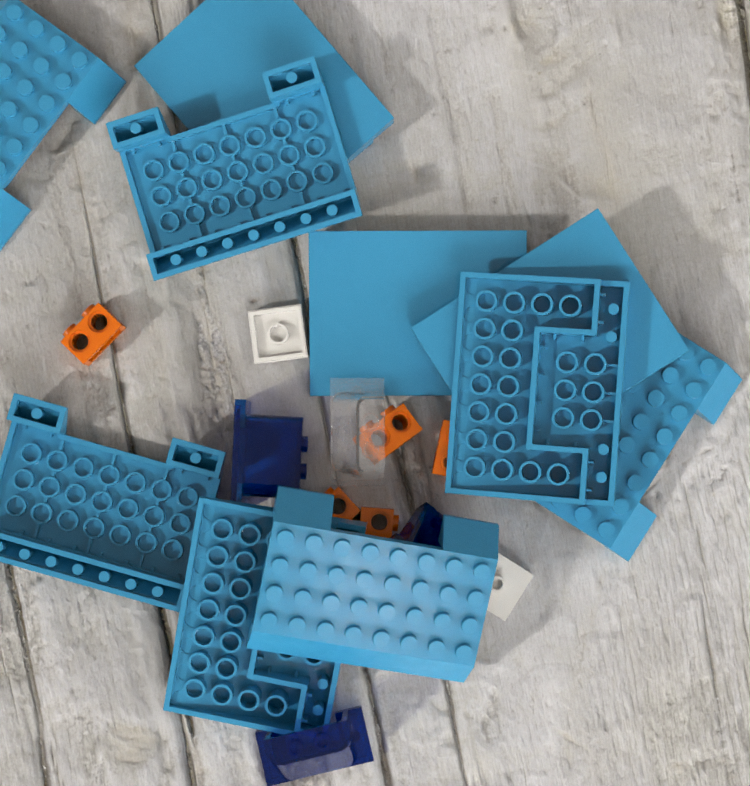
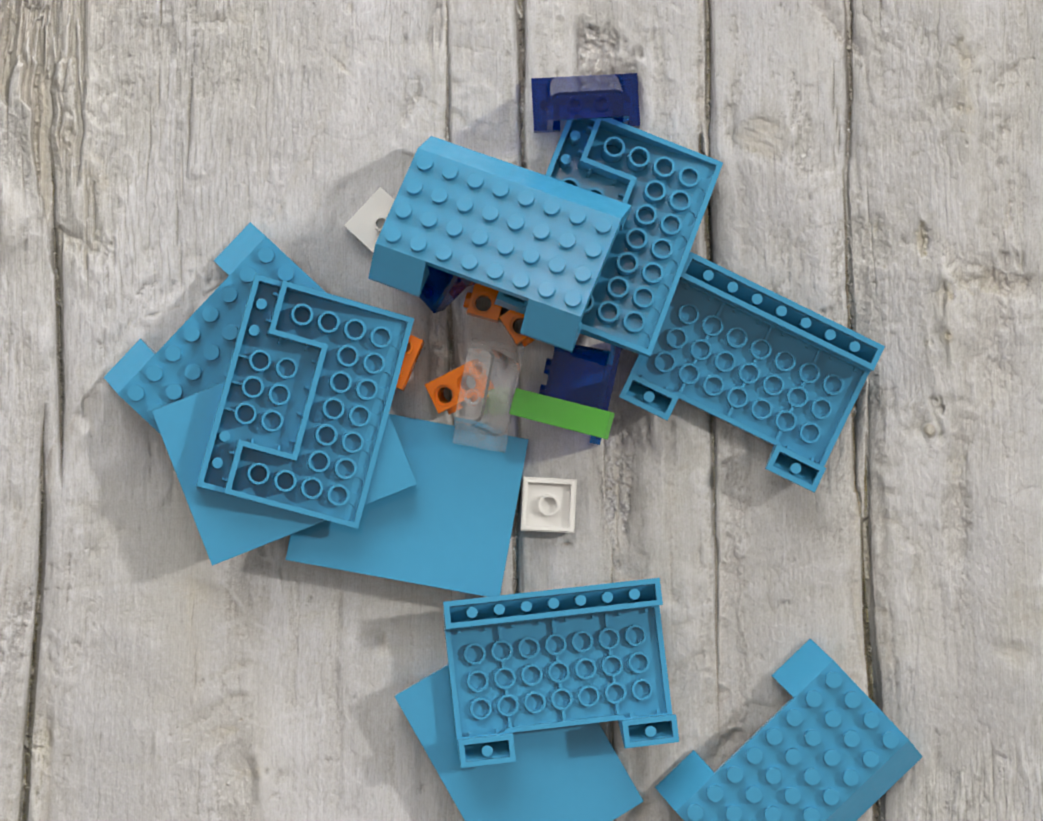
camera: 170 degrees left, 0 degrees up
(97, 339) = (726, 532): orange brick -> none
(278, 424) = (562, 413): none -> bright green tile

